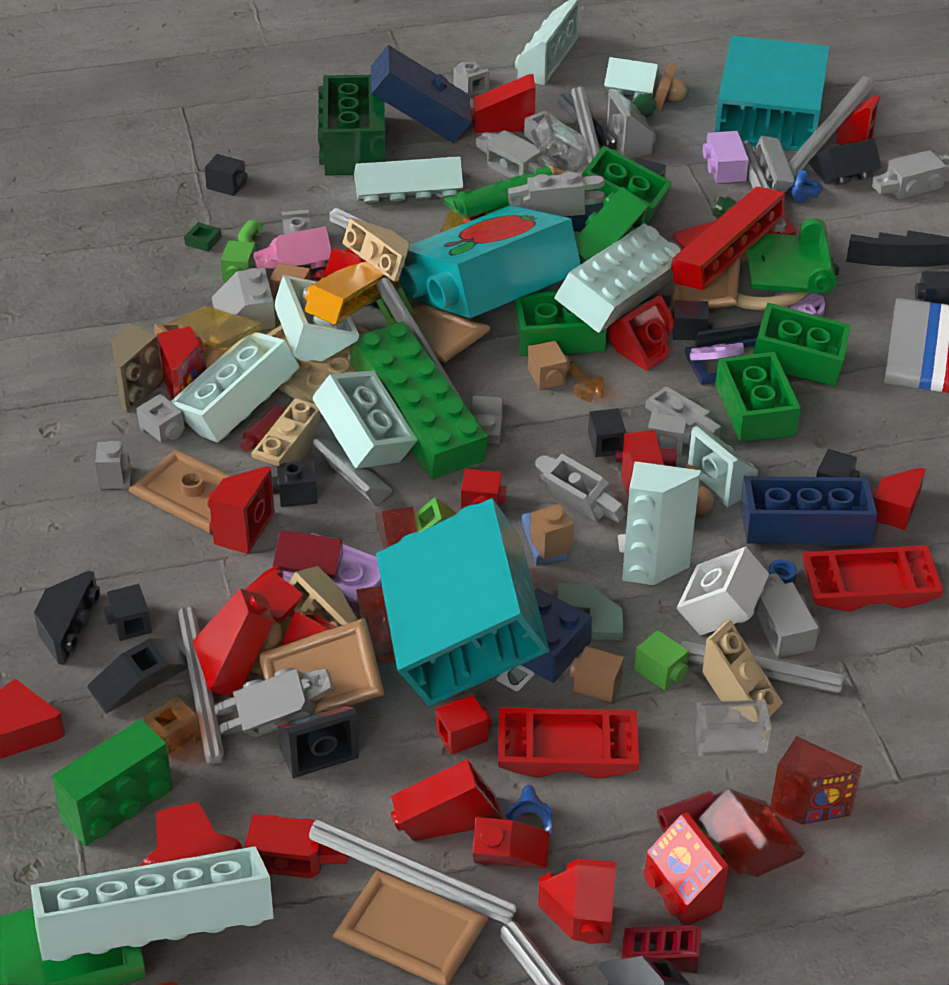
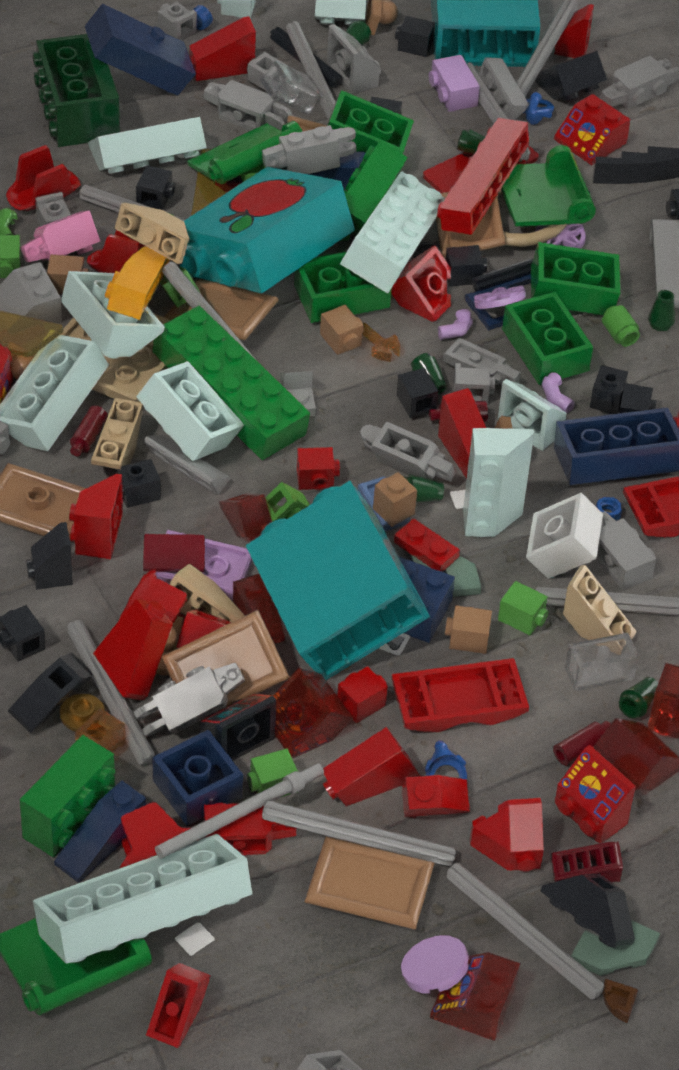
camera: 15 degrees left, 5 degrees up
(135, 827) = (99, 833): none -> dark blue slope
(162, 693) = (78, 710): none -> pearl gold piece
(182, 544) = (51, 559): none -> black slope
(204, 958) = (194, 938): none -> white sticker
(257, 781) = (196, 776): none -> dark blue brick
(293, 193) = (38, 178): none -> red piece
(340, 795) = (269, 770): none -> bright green brick
(353, 806) = (291, 784): none -> light grey bar
(397, 734) = (308, 713): none -> clear red slope
(402, 216) = (155, 187): none -> black brick
(496, 77) = (203, 18): none -> blue axle
(574, 583) = (426, 545): none -> red plate
(588, 527) = (426, 489): none -> dark green cone
(628, 411) = (431, 365): none -> dark green cone
(669, 378) = (458, 328): none -> lavender arm
(698, 113) = (415, 36): none -> black brick
(751, 451) = (553, 395): none -> lavender arm
(761, 773) = (638, 698): none -> dark green cone
(809, 453) = (608, 389): none -> black brick
(840, 395) = (621, 325): none -> bright green brick
(857, 210) = (593, 129): none -> red slope
(887, 387) = (663, 311): none -> dark green cone

